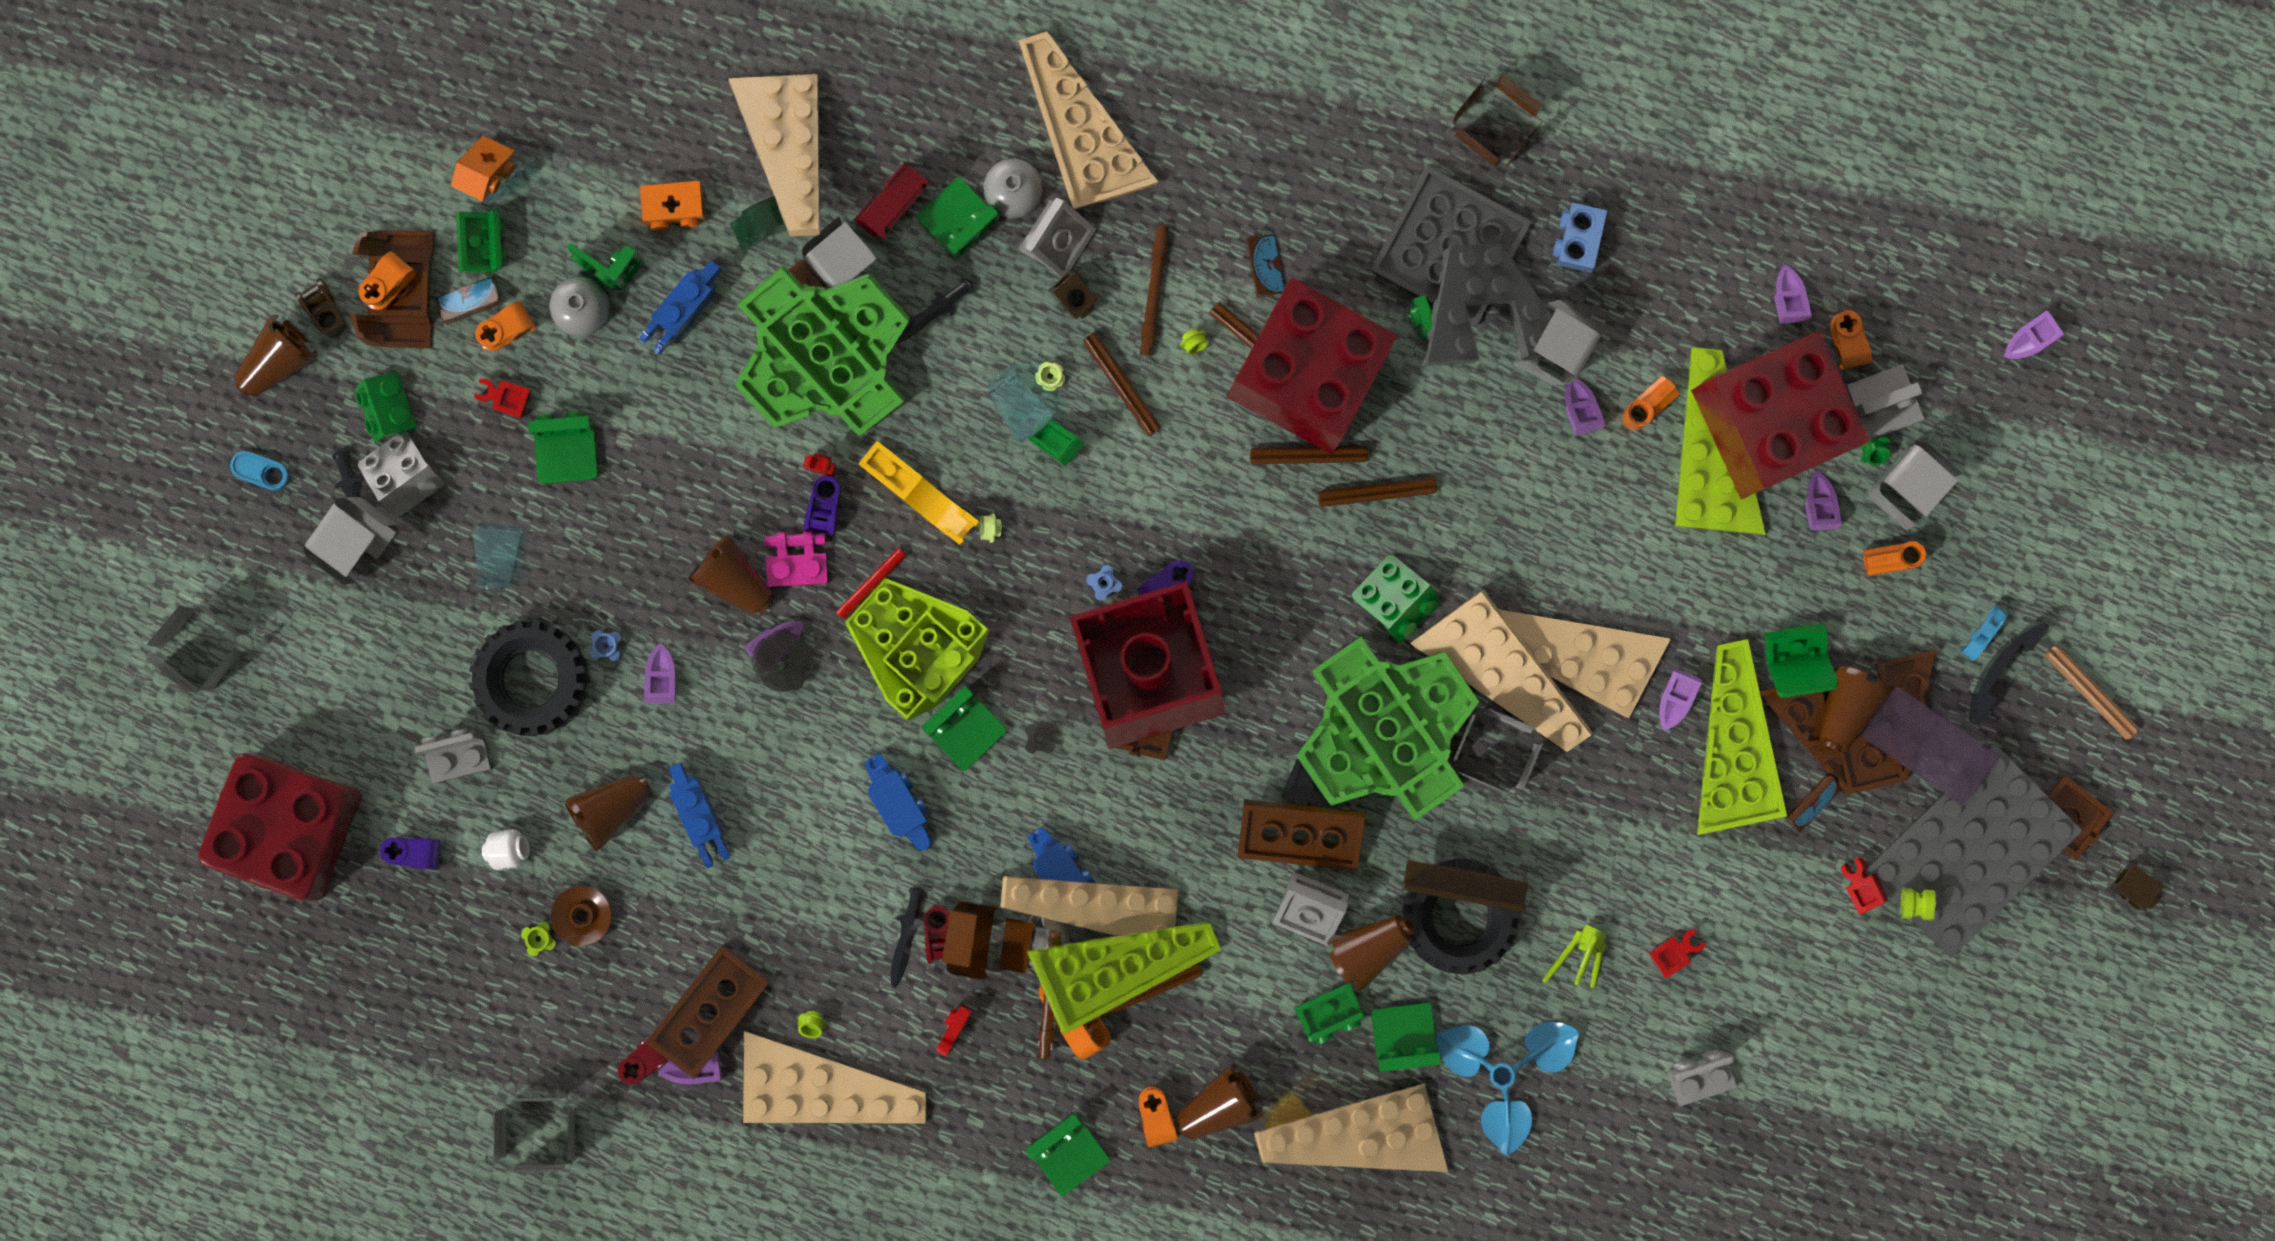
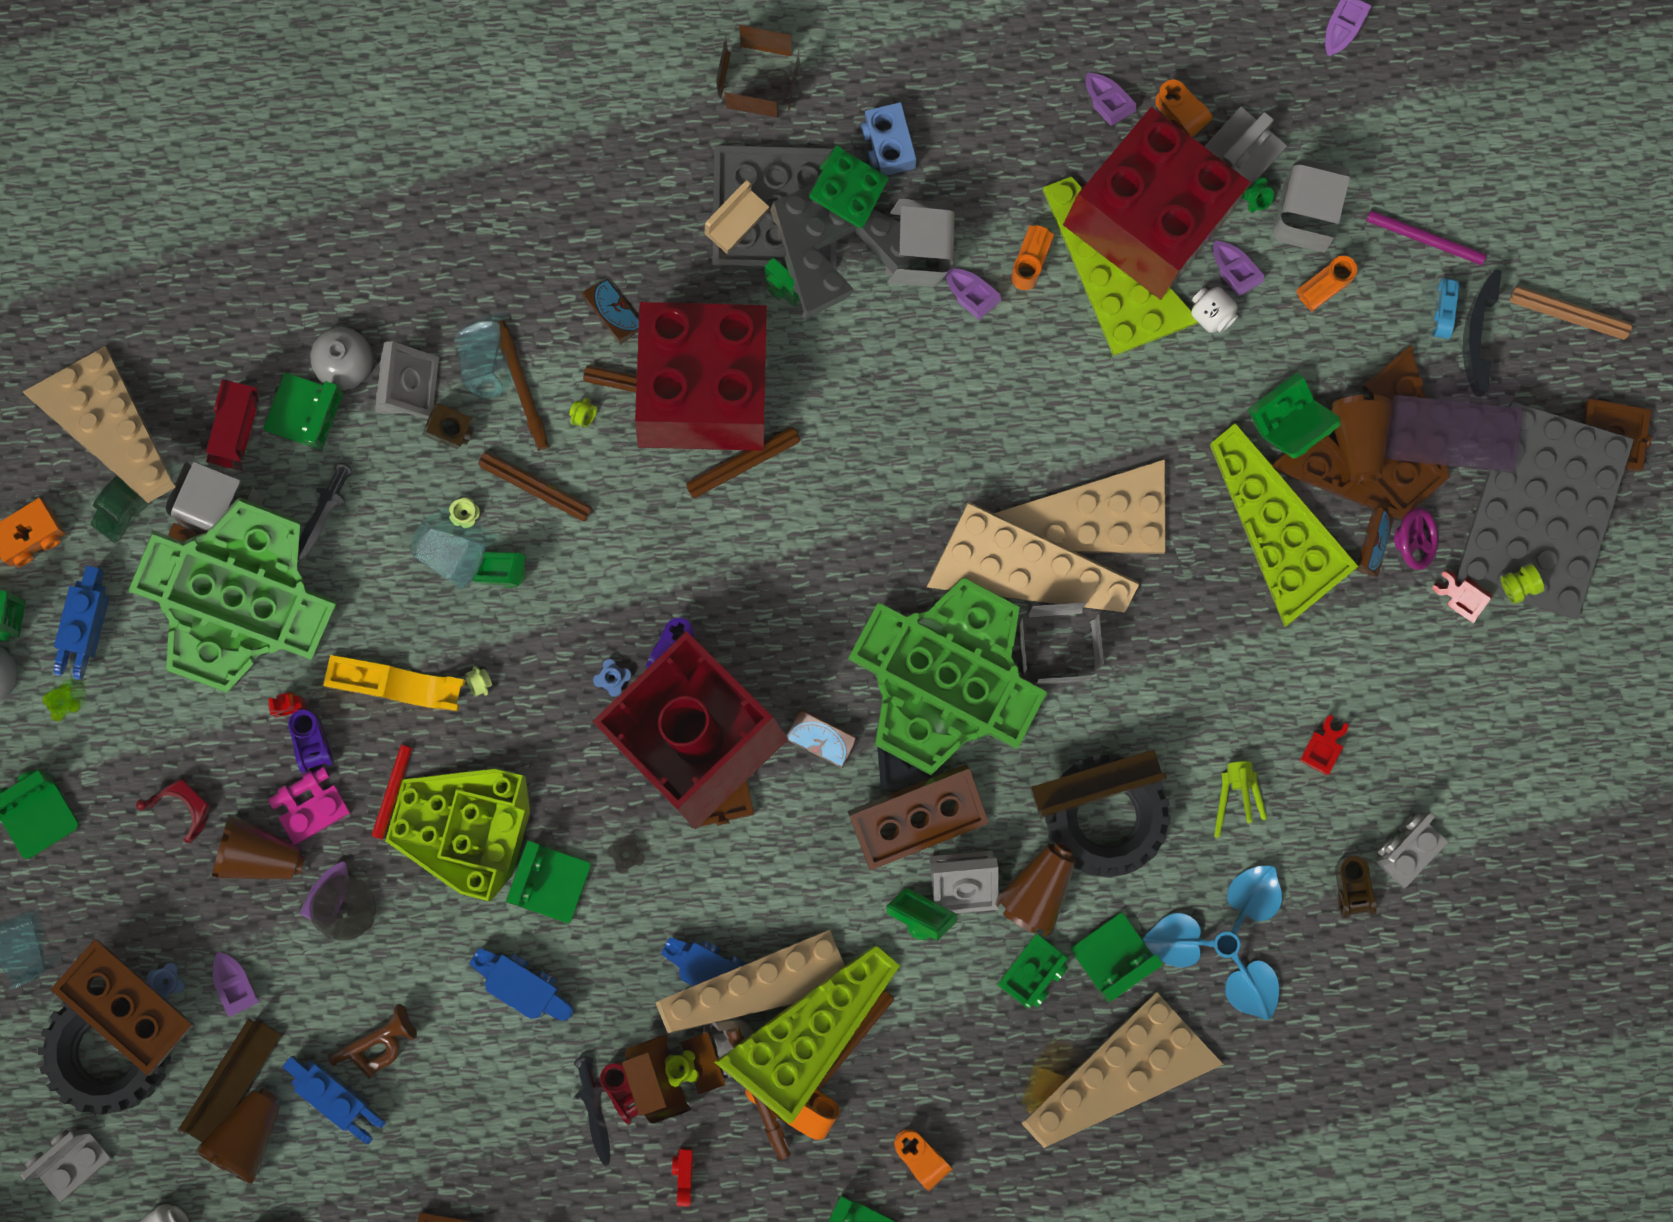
camera: 30 degrees left, 5 degrees down
(542, 646) = (100, 1013): none -> reddish brown plate
(621, 756) = (231, 1079): none -> dark brown panel
(626, 358) = (52, 700): none -> clear neon green plate
(703, 509) = (198, 806): none -> dark red helmet
(780, 783) = (397, 1026): none -> reddish brown piece
(988, 937) = (673, 1071): none -> lime plate
(1086, 141) = (388, 281): tan wing -> none
(1130, 246) = (477, 356): none -> clear light blue piece
(1220, 1105) = (975, 1115): reddish brown cone -> none
(1253, 725) = (821, 738): none -> slope
(1260, 918) = (923, 917): none -> green tile
(1377, 492) = (823, 464): reddish brown axle -> none
(1396, 597) = (893, 551): green bracket -> none
(1412, 240) = (735, 217): none -> tan panel
(1522, 263) = (848, 187): none -> green bracket
(1636, 1085) = (1355, 889): none -> dark brown piece
(1678, 698) = (1200, 510): medium lavender plate -> none
(1782, 531) = (1214, 309): none -> white head
(1846, 814) = (1412, 537): none -> magenta piece
(2002, 562) = (1426, 237): none -> magenta piece

